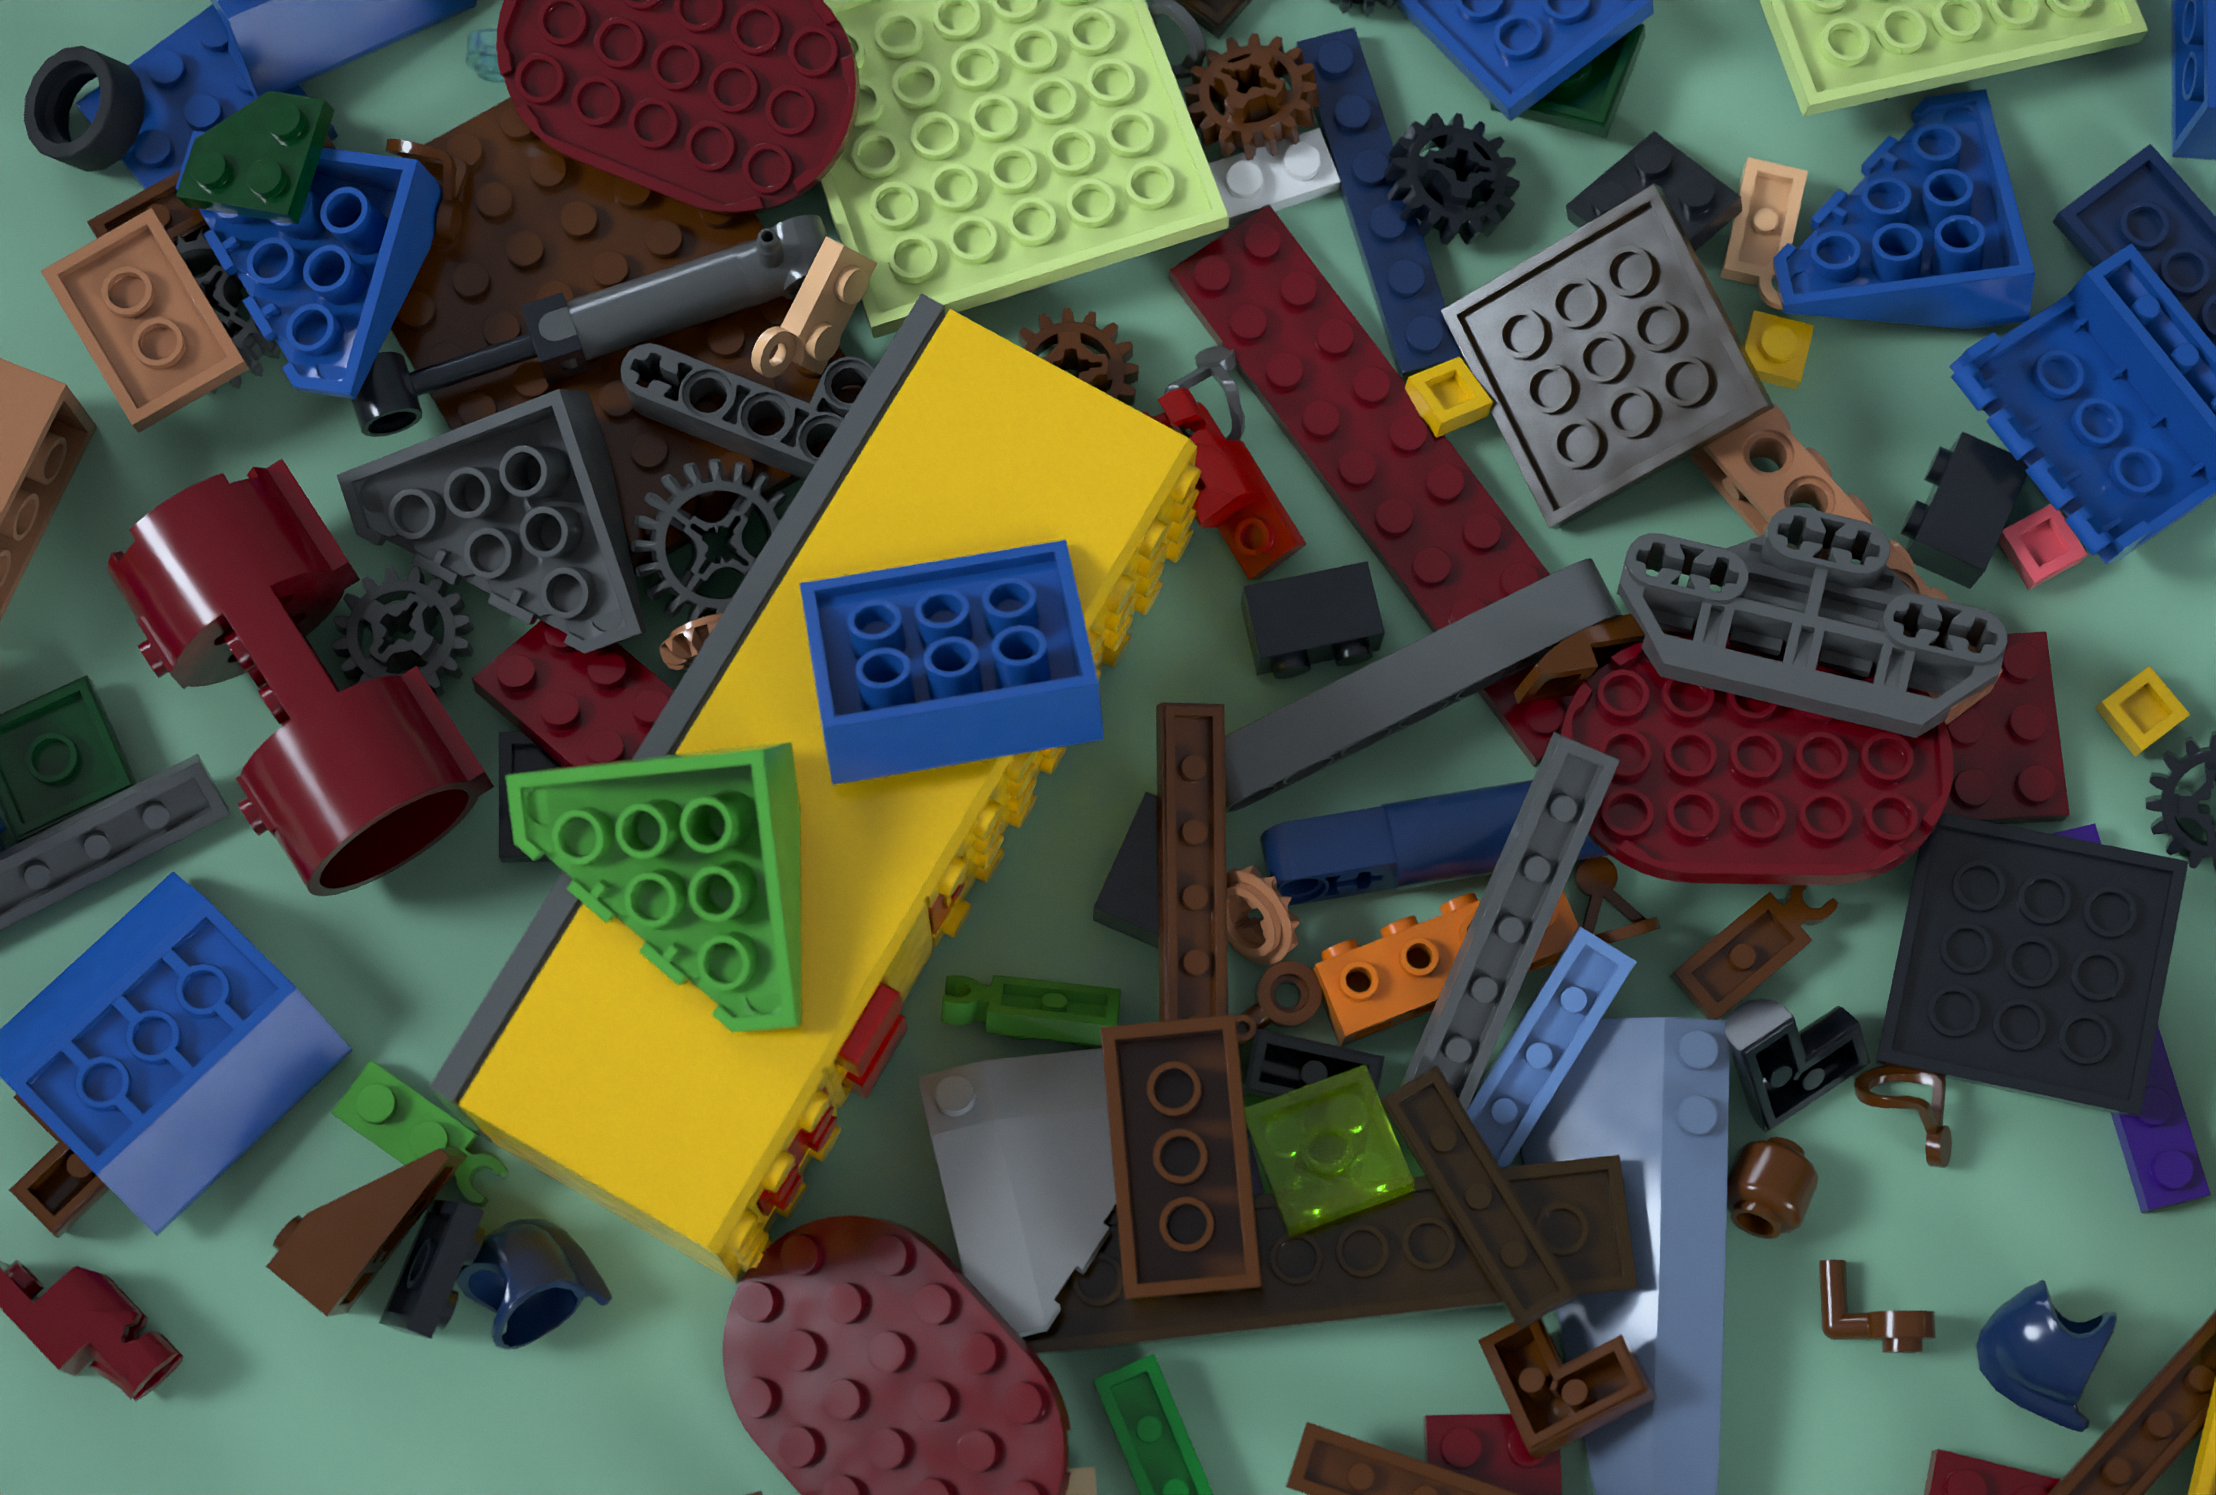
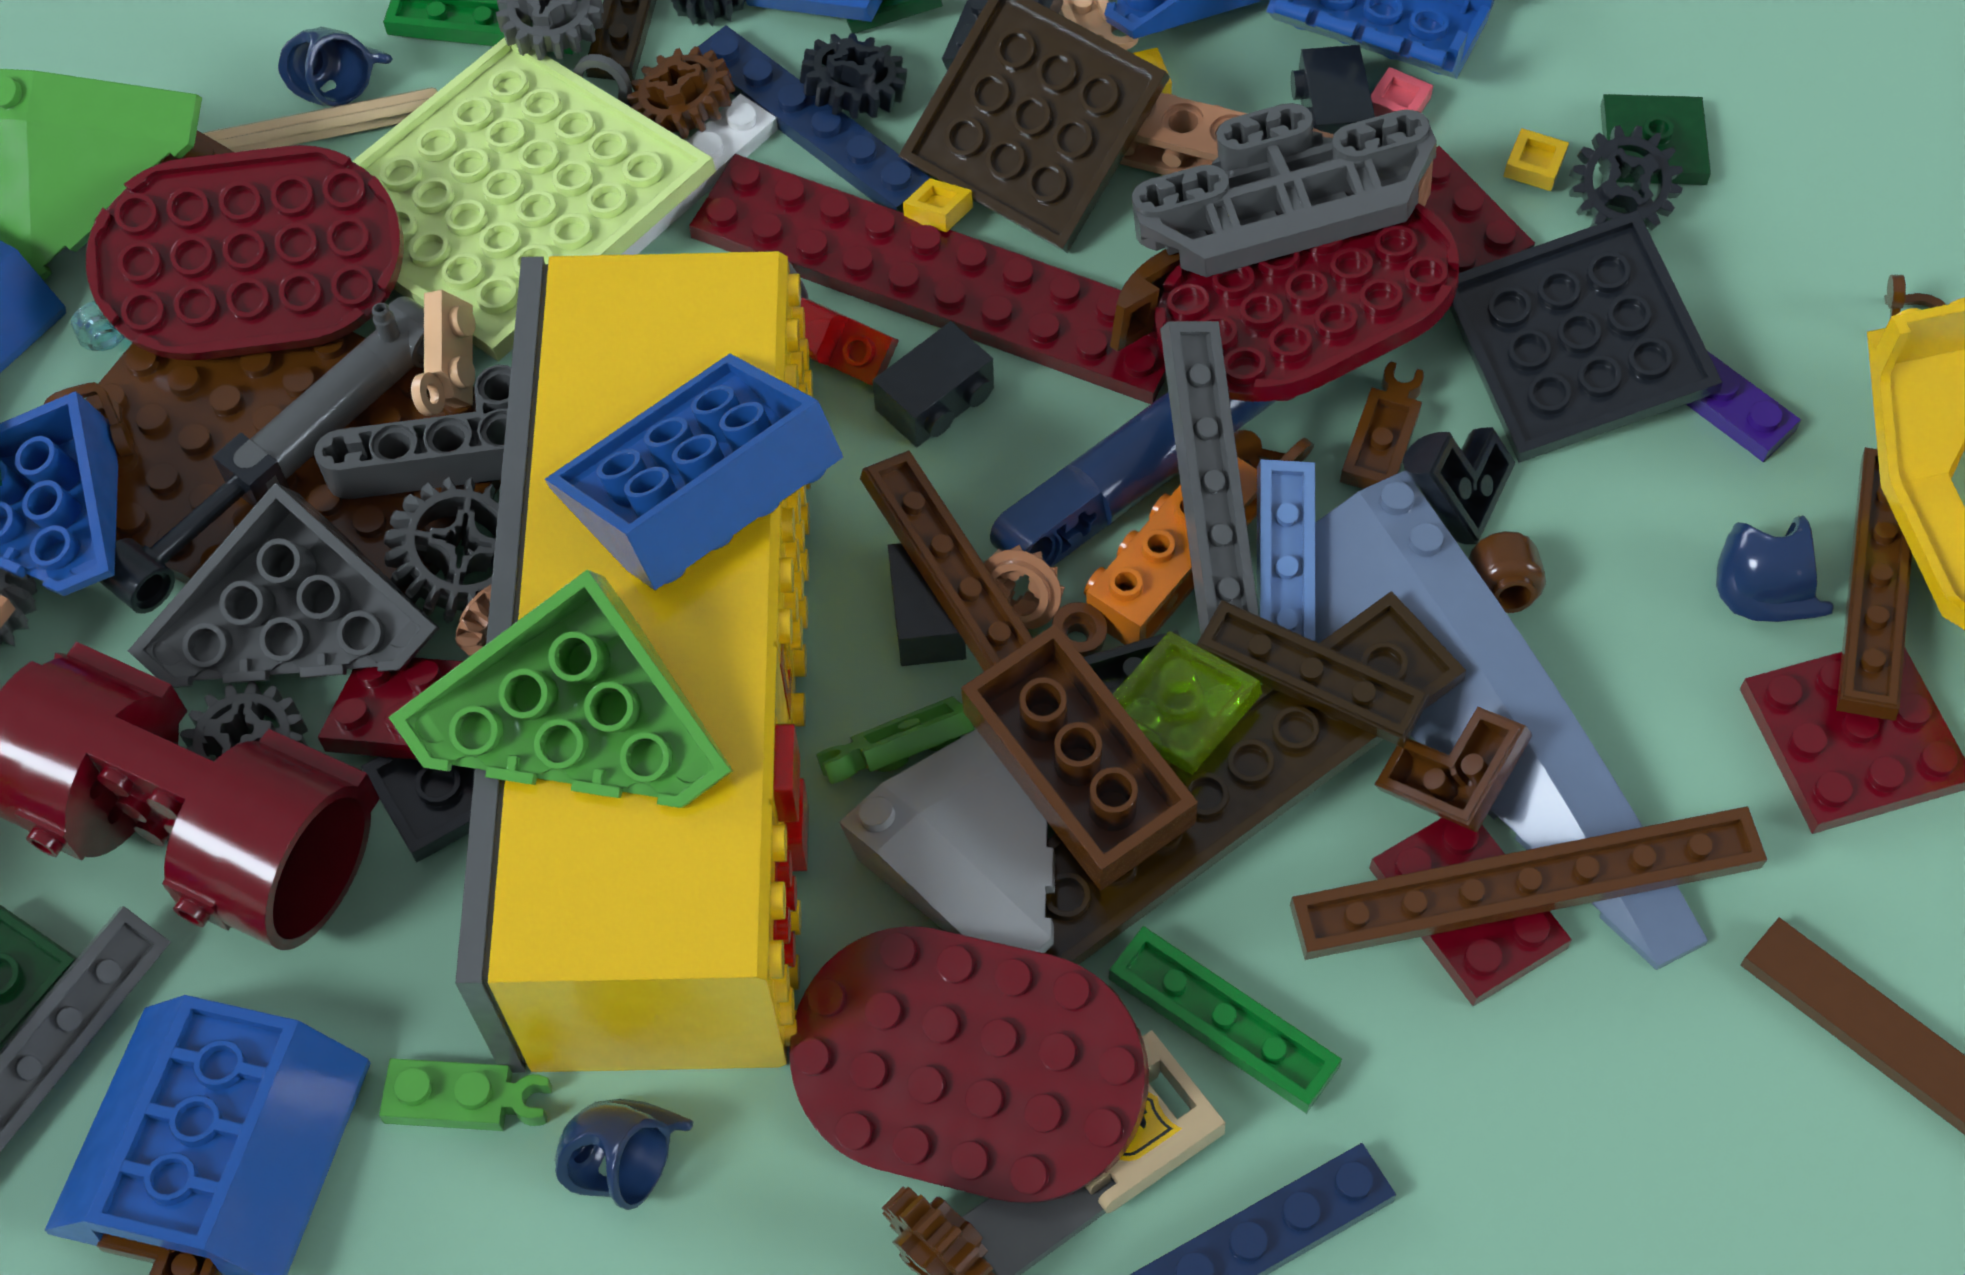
camera: 25 degrees left, 15 degrees down
(347, 1241) = (450, 1191): reddish brown slope -> none
(424, 1287) = (531, 1174): black plate -> none
(1412, 683) = (1034, 380): dark grey beam -> none
(1899, 1330) = (1659, 614): reddish brown plate -> none
(1938, 1137) = (1534, 469): reddish brown piece -> none

